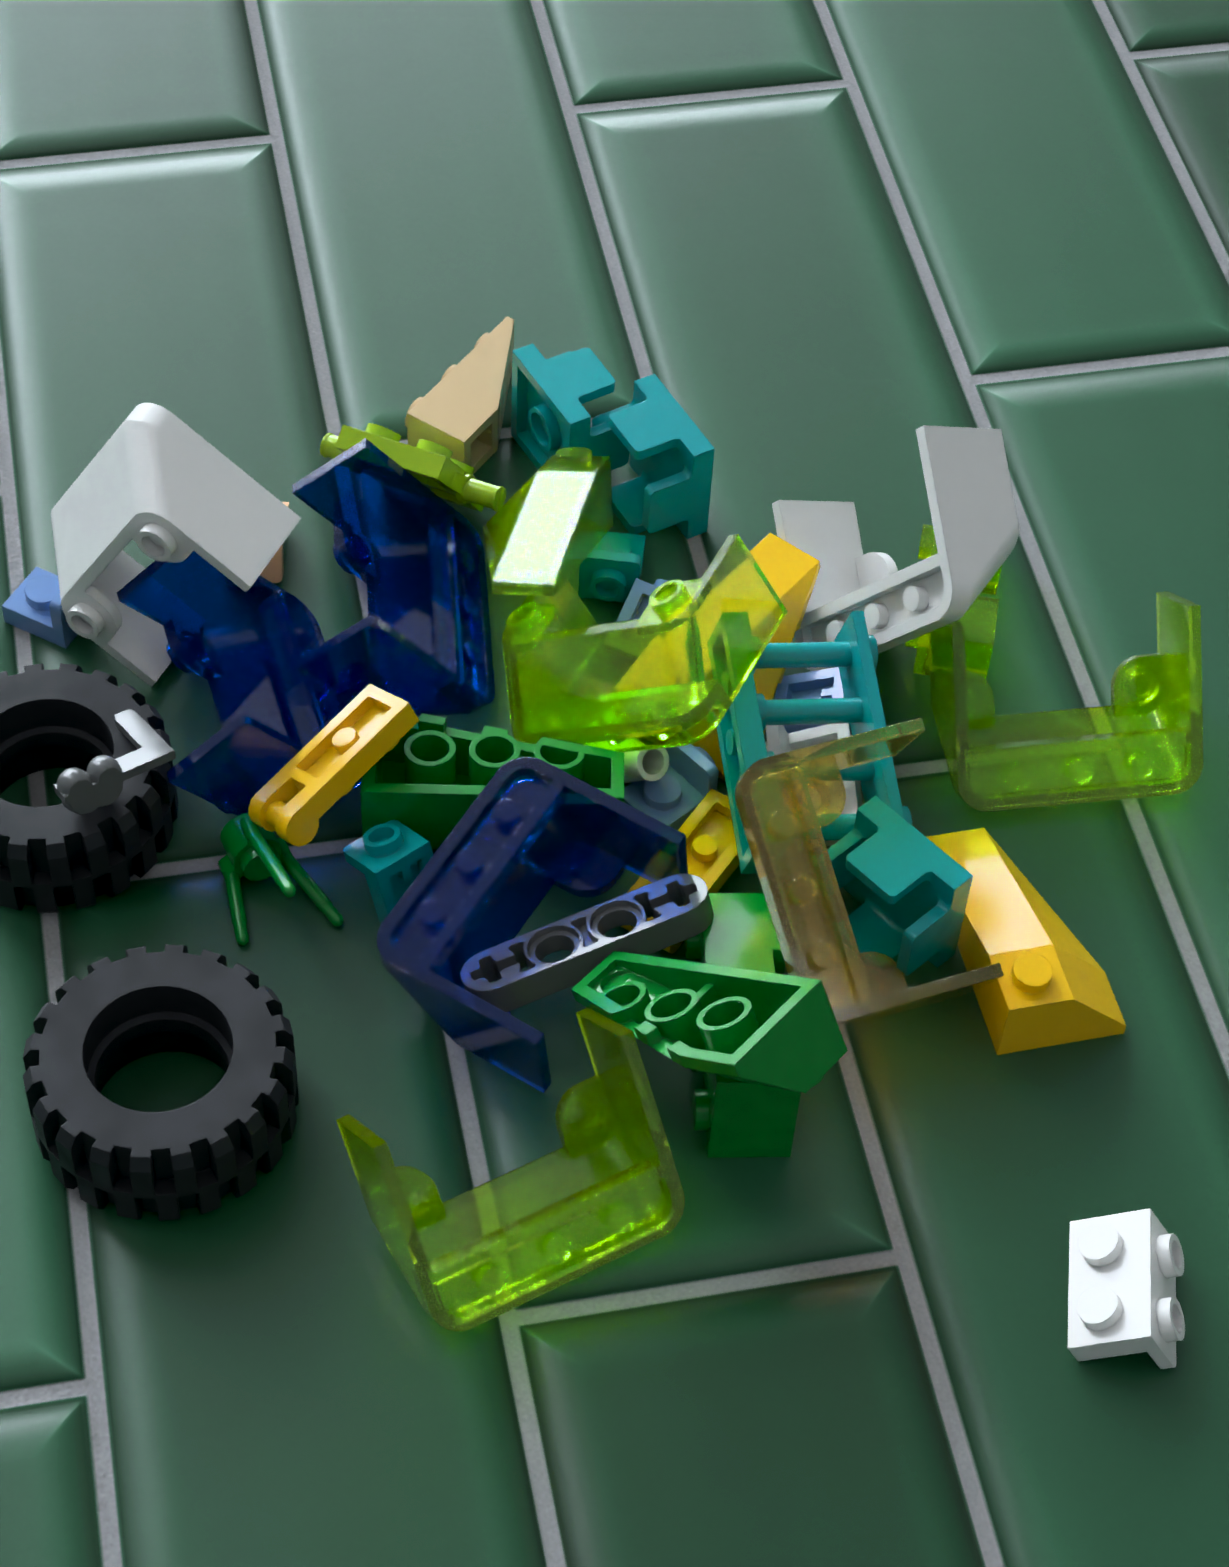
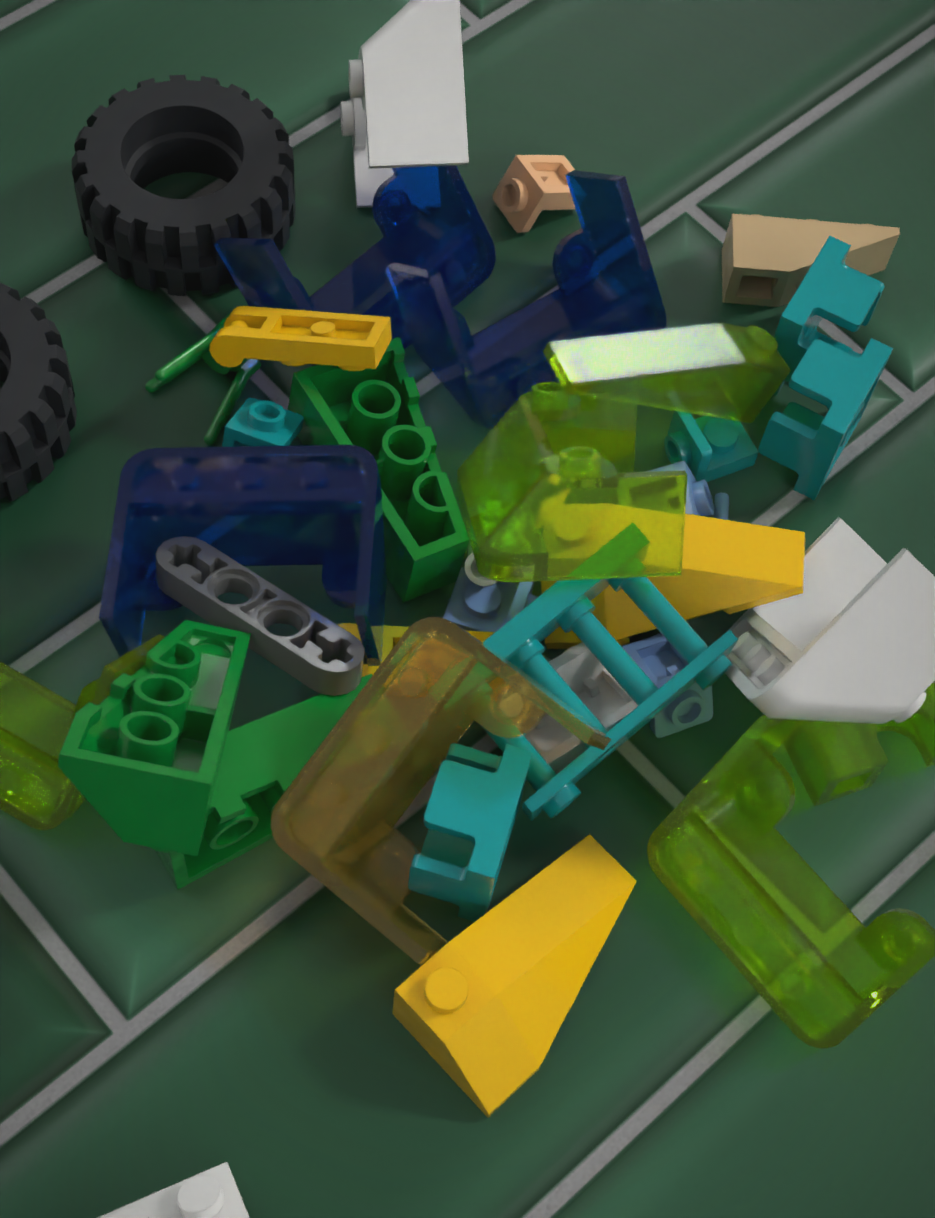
camera: 55 degrees right, 10 degrees up
(104, 778) = (164, 194): dark grey piece -> none
(426, 462) = (675, 248): lime plate -> none

